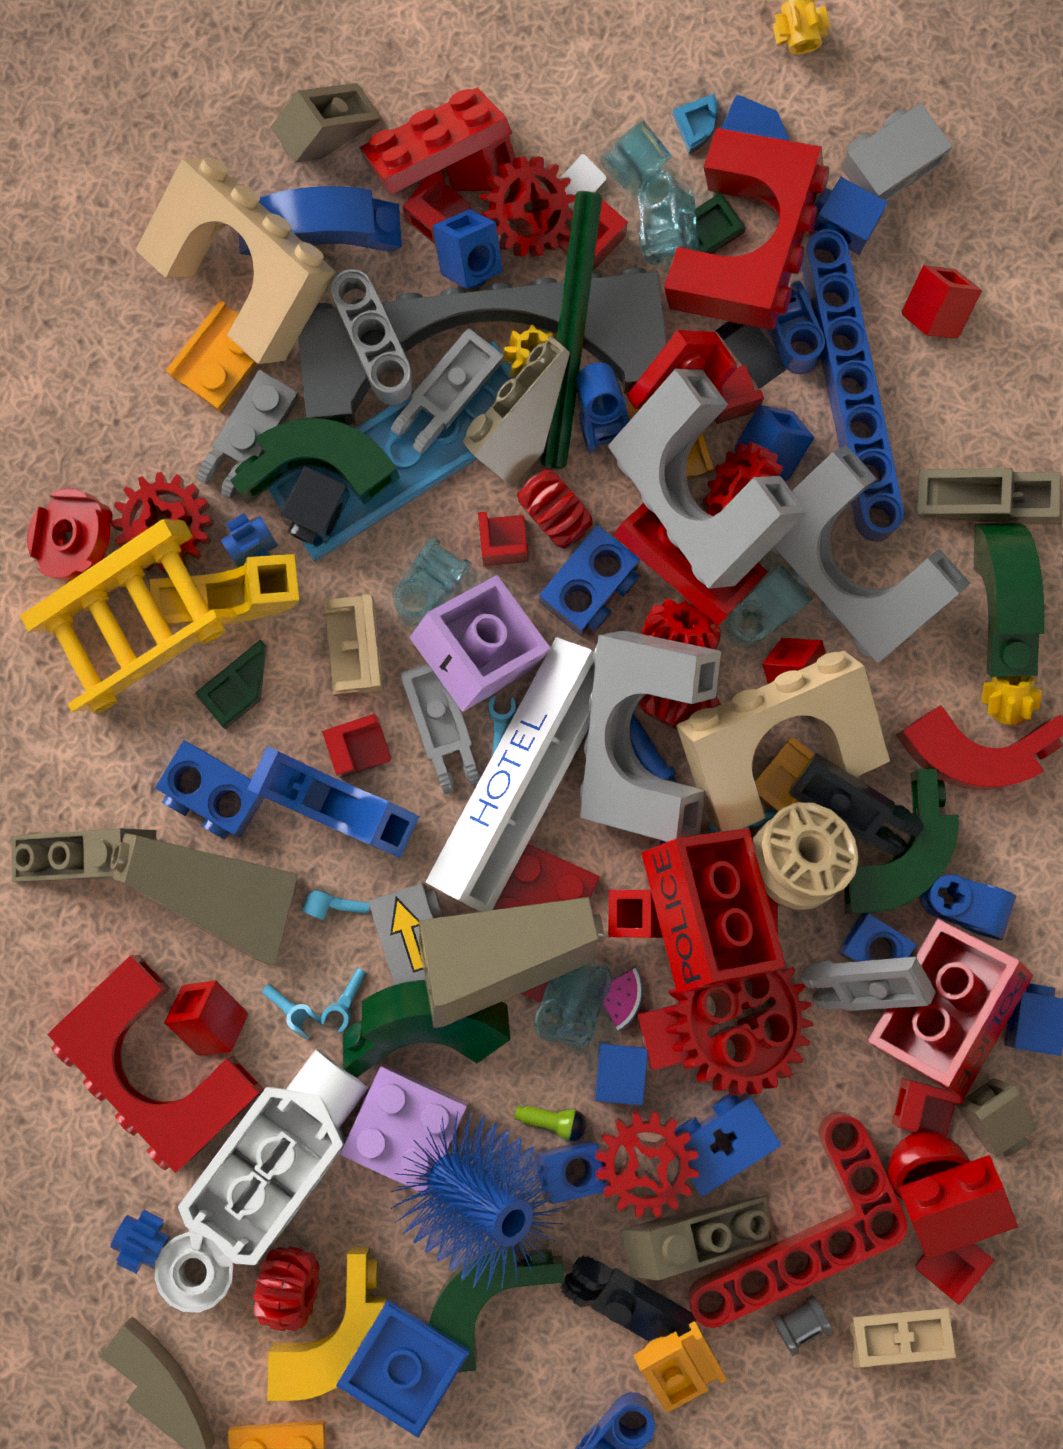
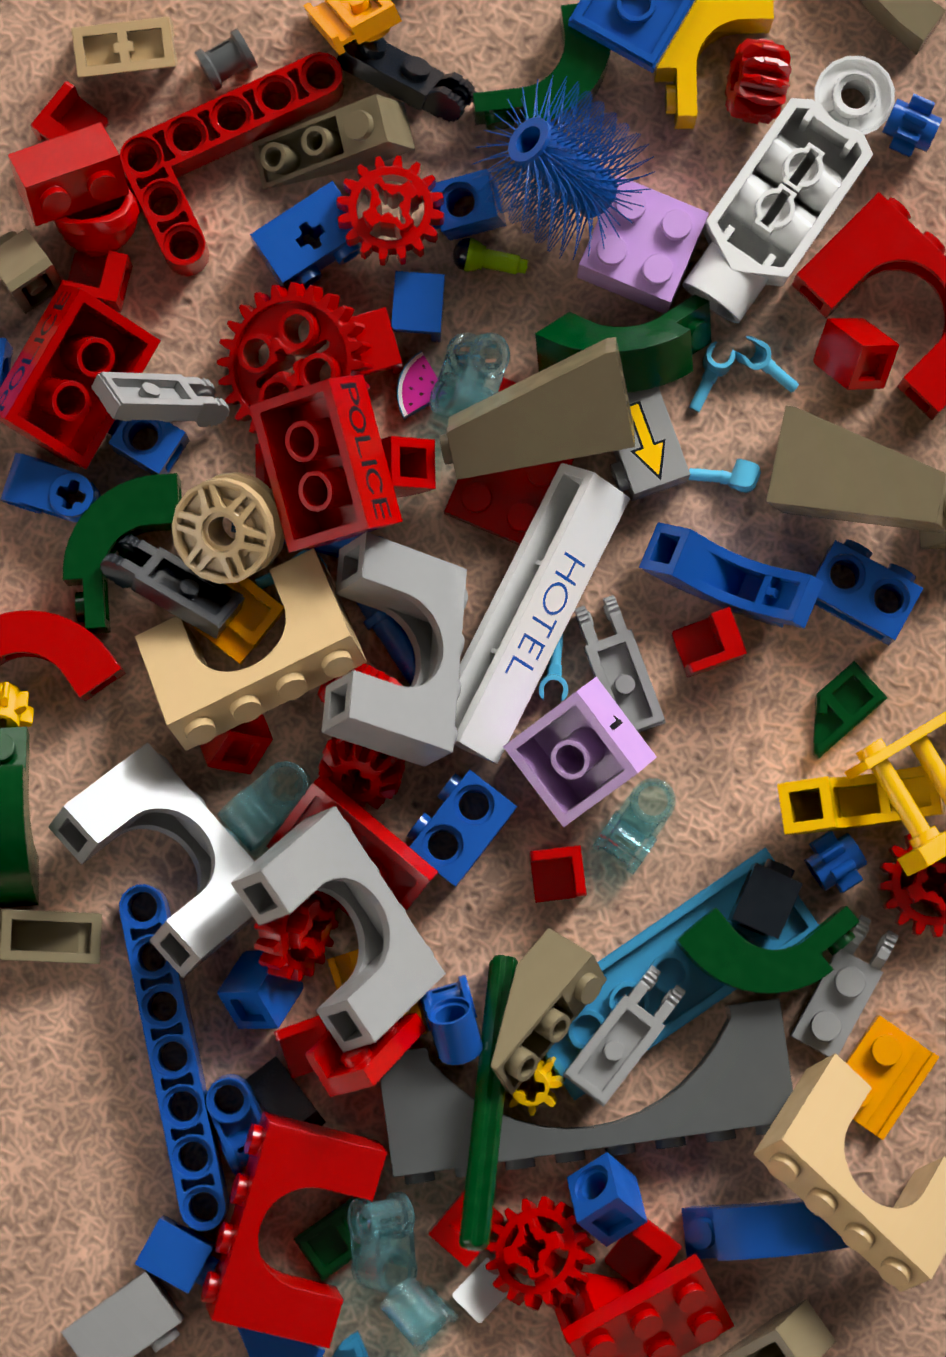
camera: 175 degrees right, 0 degrees up
(353, 645) = (716, 752): tan hinge -> none
(369, 316) = (729, 1102): light grey beam -> none
(555, 508) = (502, 905): red gear -> none
(941, 302) = (73, 1156): red panel -> none

